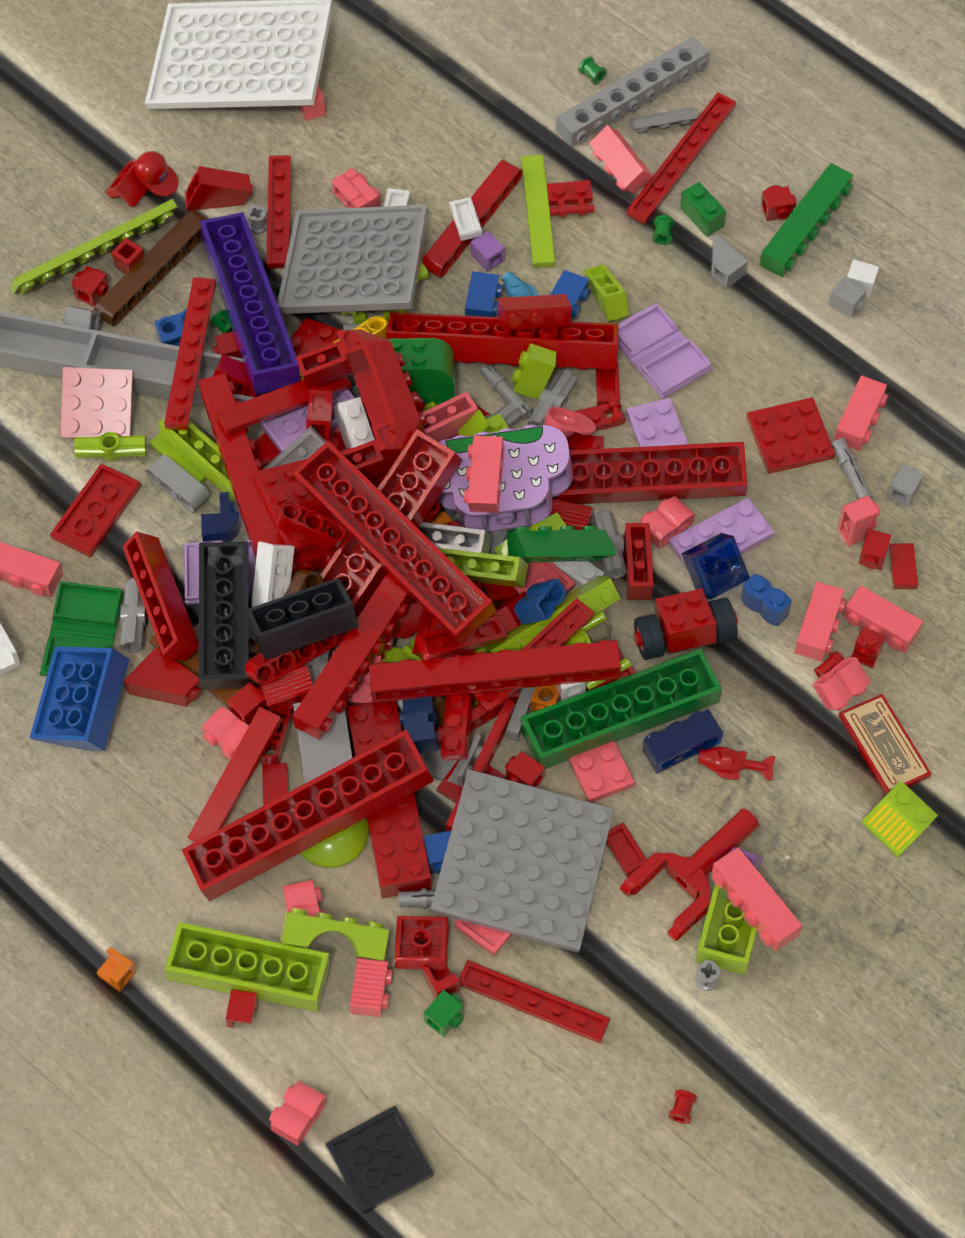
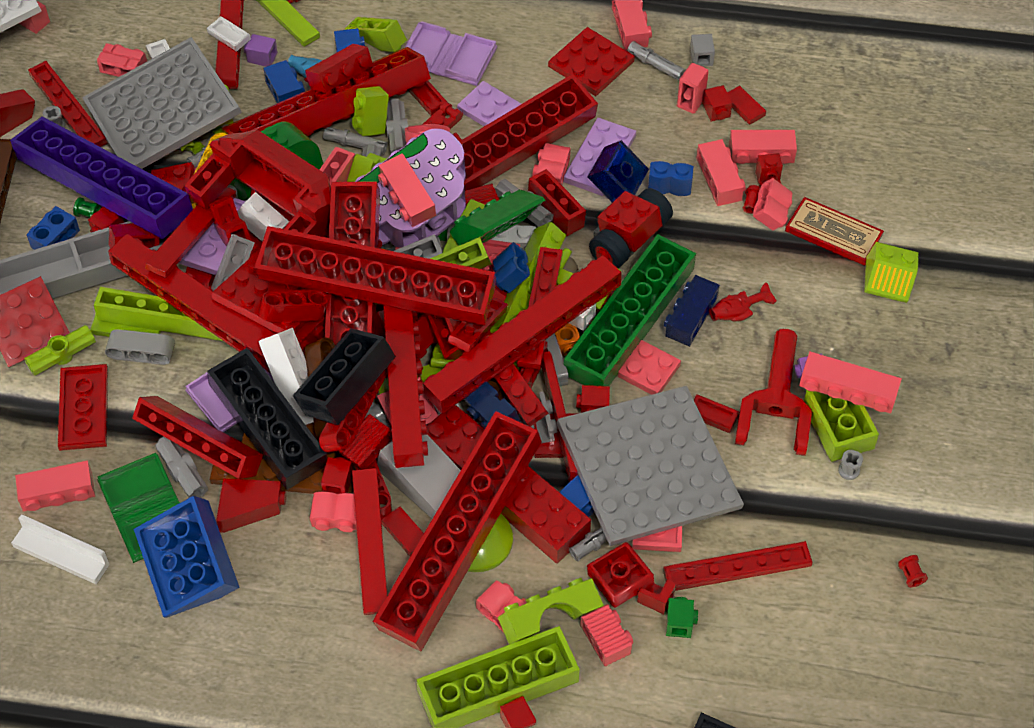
camera: 35 degrees left, 5 degrees down
(190, 354) = (81, 240): red plate -> none
(222, 525) = (203, 354): clear blue brick -> none

